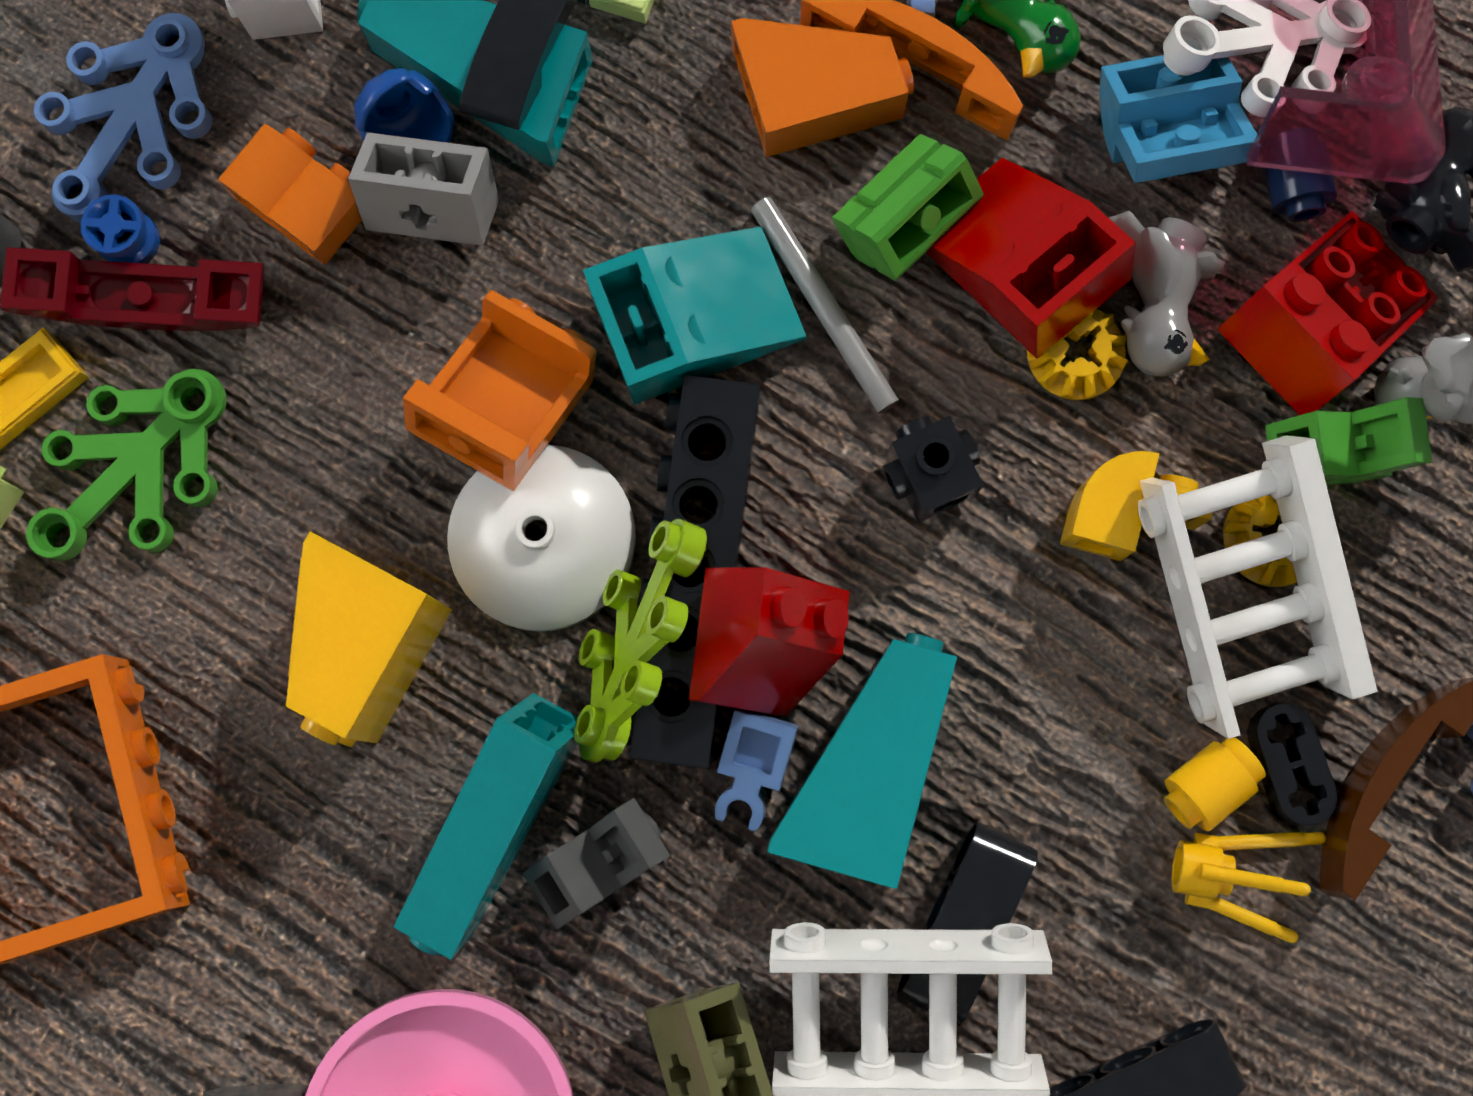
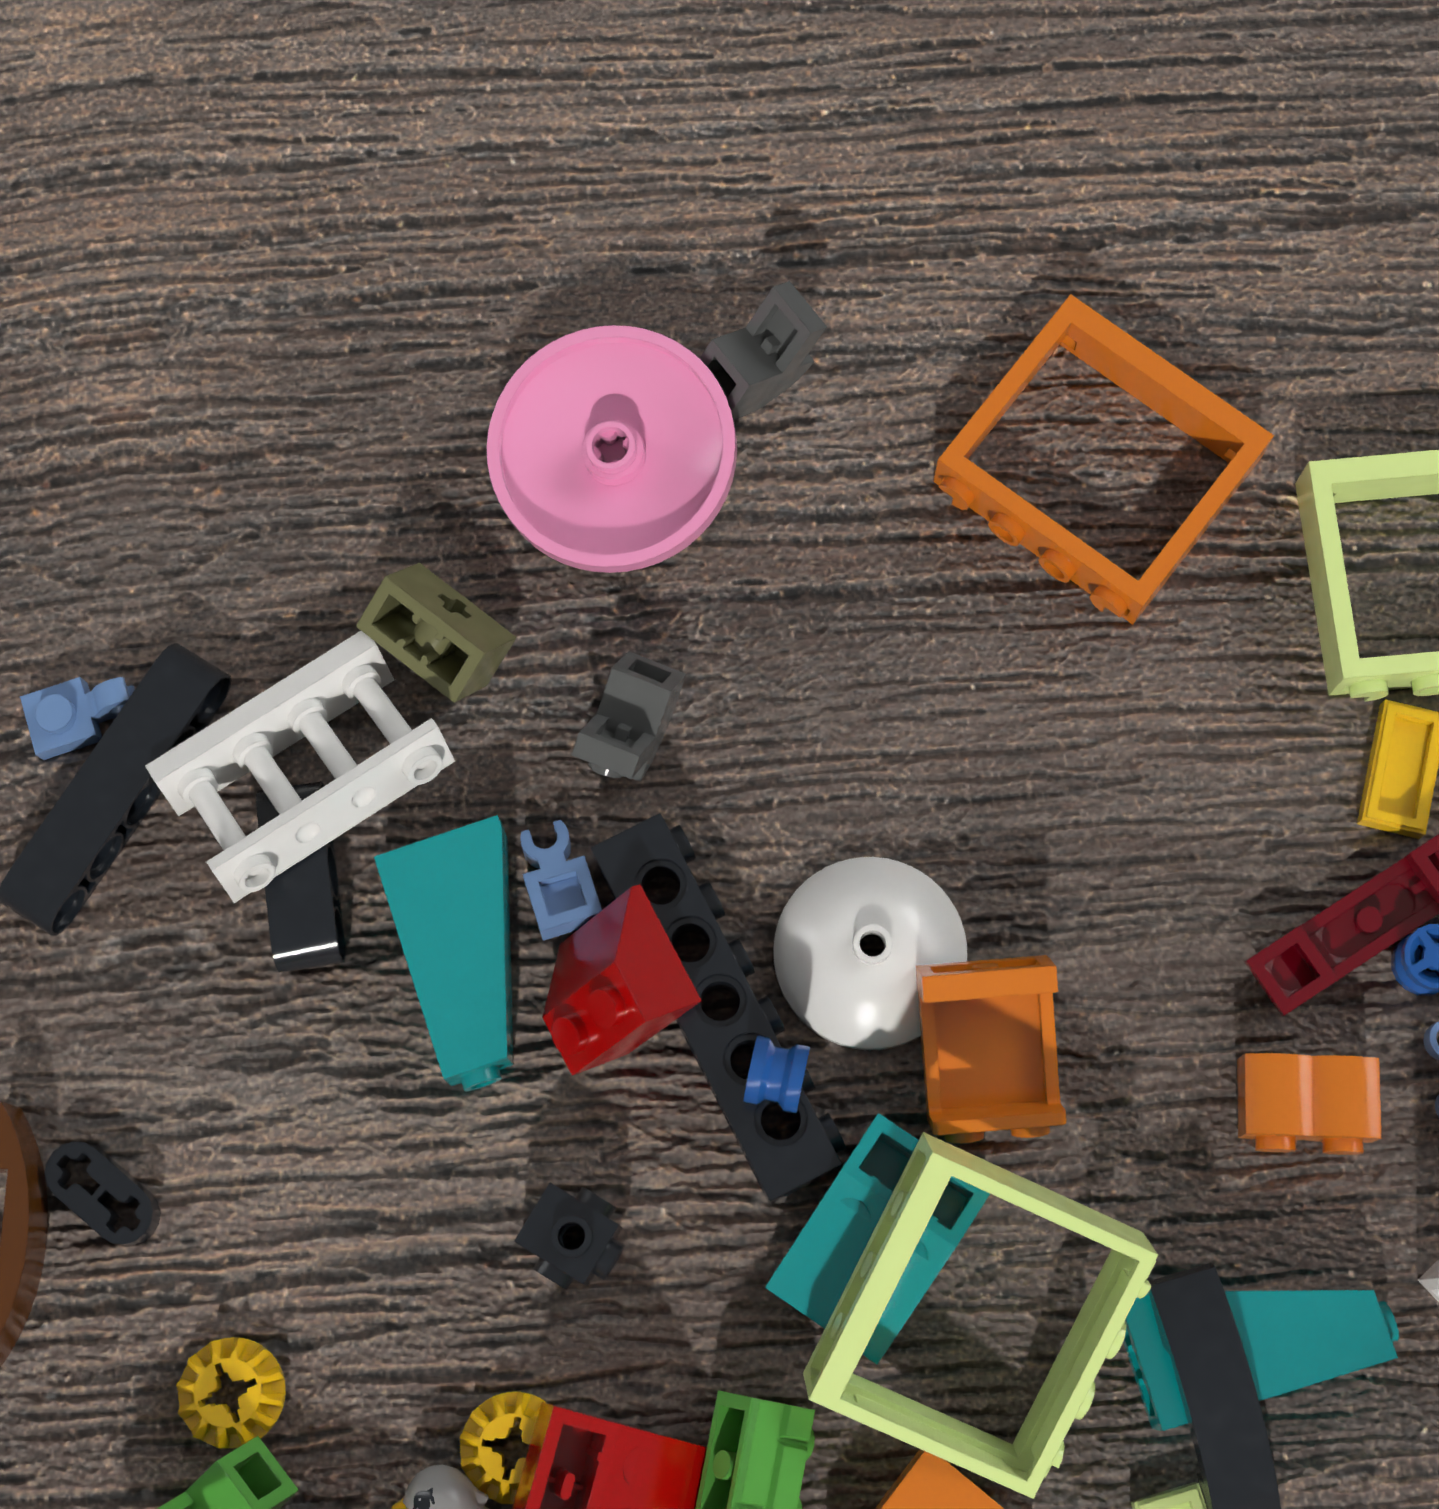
camera: 145 degrees right, 5 degrees down
(137, 458) = (1254, 783): bright green plant -> none
(354, 643) = (950, 754): yellow slope -> none
(403, 106) = (1267, 1234): blue hair -> none
(424, 188) = (1194, 1178): light grey brick -> none
(488, 825) = (738, 696): teal slope -> none
(639, 635) = (718, 909): lime plant -> none
(686, 467) = (776, 1074): none -> blue wheel
(691, 269) = (1070, 1382): none -> yellowish green window
(824, 305) = (749, 1321): light grey bar -> none
(1105, 507) = (394, 1321): yellow brick -> none
(1205, 871) = (122, 1048): yellow plant -> none
(1213, 784) = (161, 1126): yellow brick -> none
(1321, 599) = (158, 1345): white fence -> none

